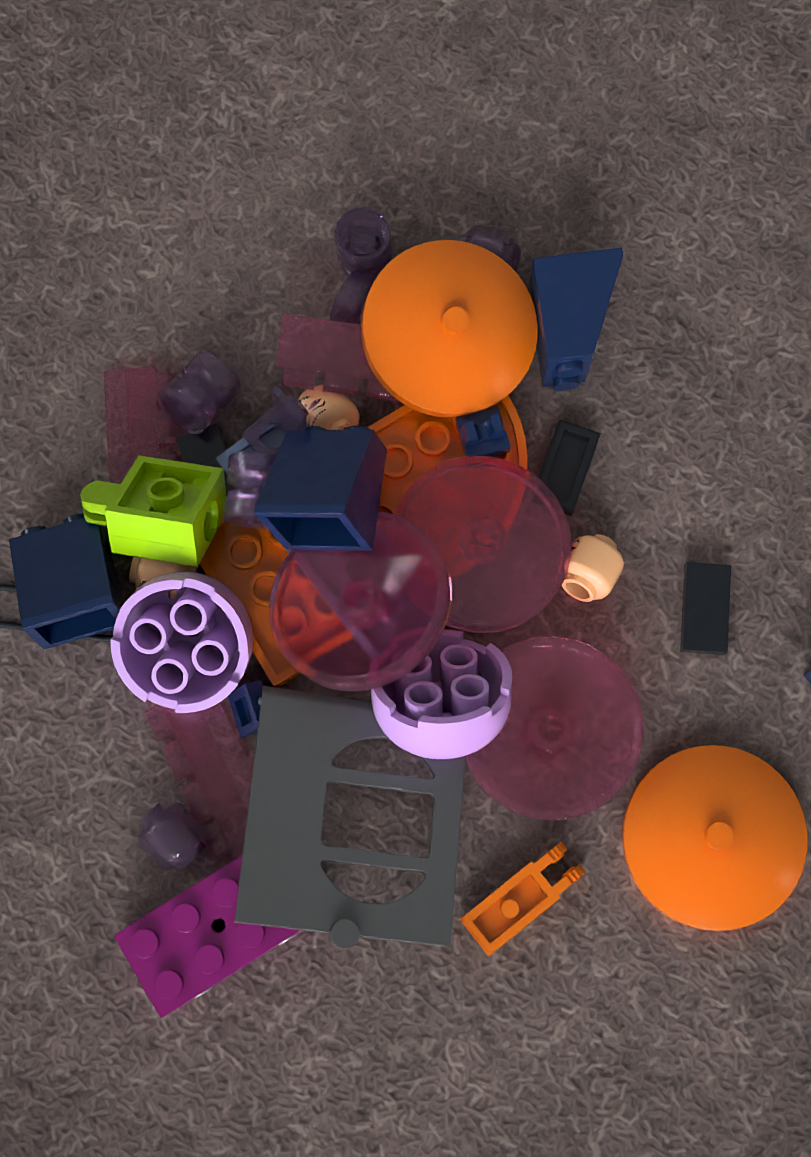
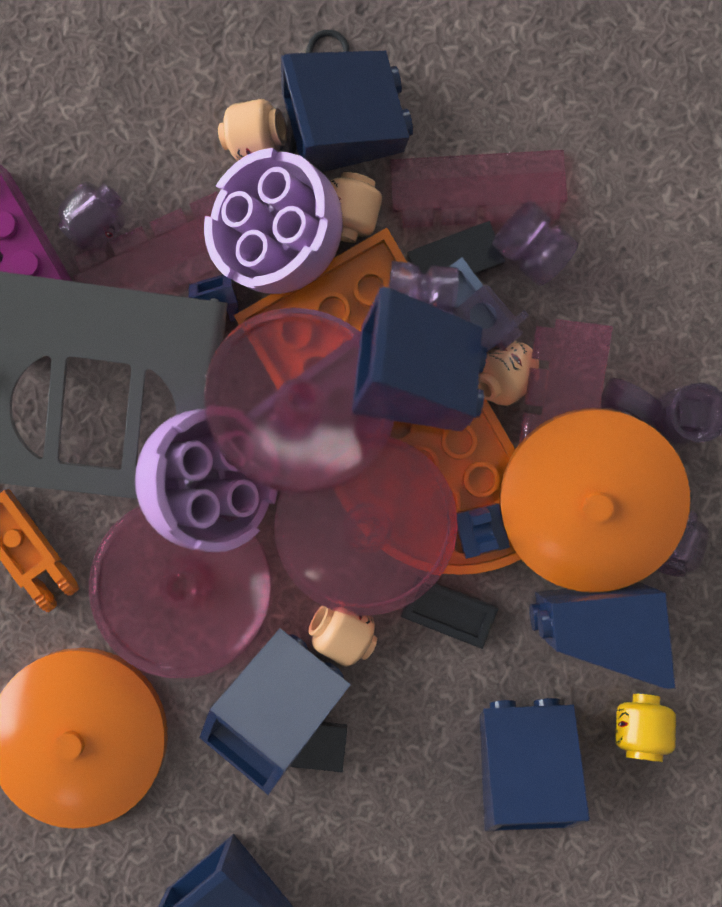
camera: 90 degrees right, 10 degrees up
(85, 673) = (252, 128): none -> light nougat head
(159, 509) = (407, 198): lime brick -> none
(668, 278) = (645, 728): none -> yellow head
(673, 629) = (273, 709): none -> slope
(713, 382) = (531, 767): none -> dark blue slope

